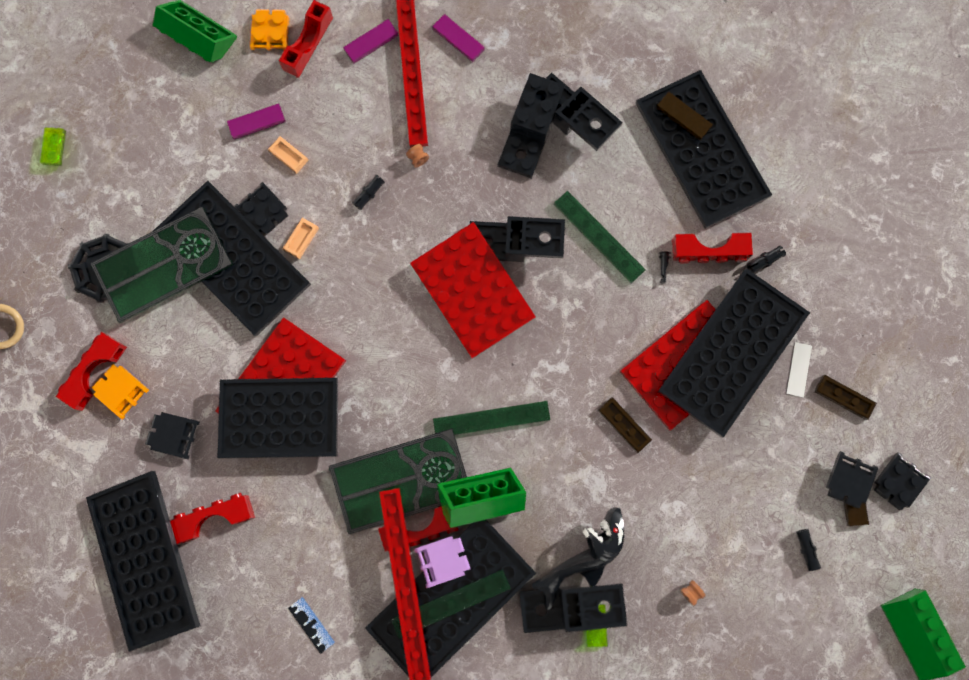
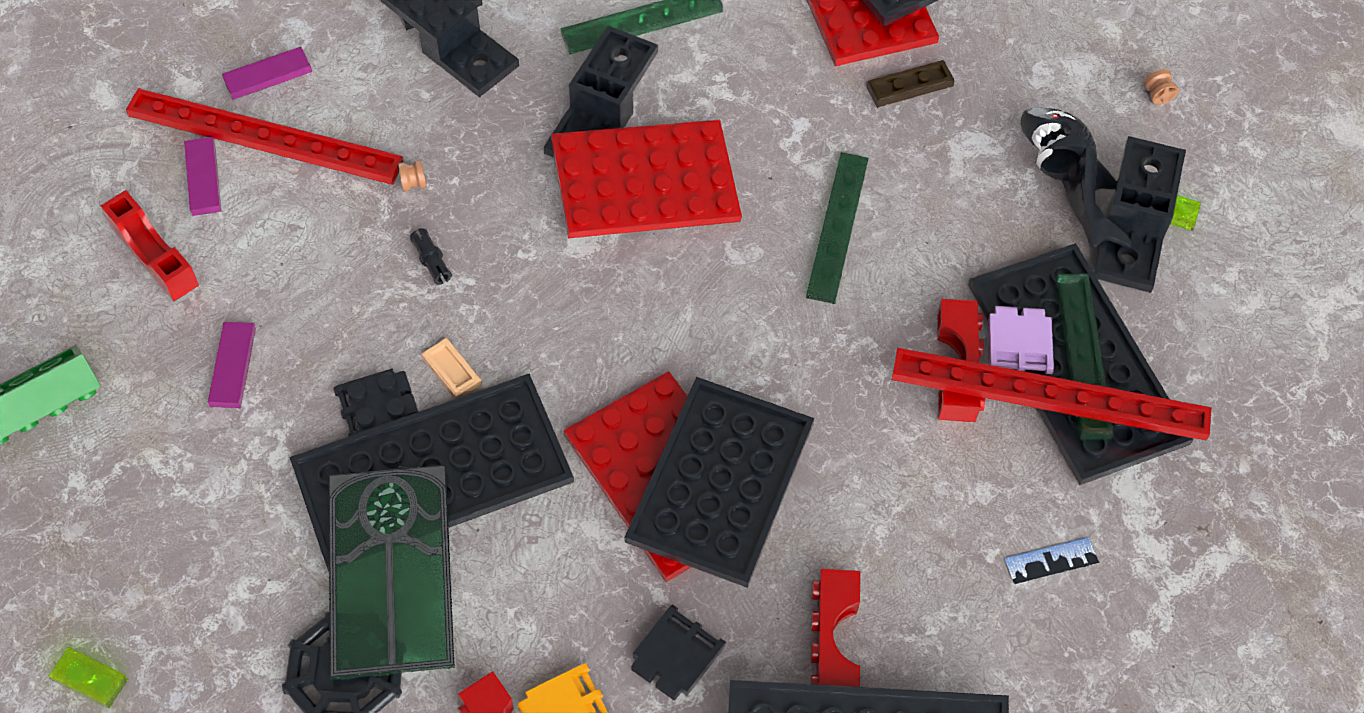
camera: 70 degrees left, 20 degrees down
(269, 29) = (96, 296): light orange plate -> none
(288, 154) = (311, 341): light nougat tile -> none
(411, 466) = (860, 401): piece -> none
(481, 497) = (948, 261): green slope -> none

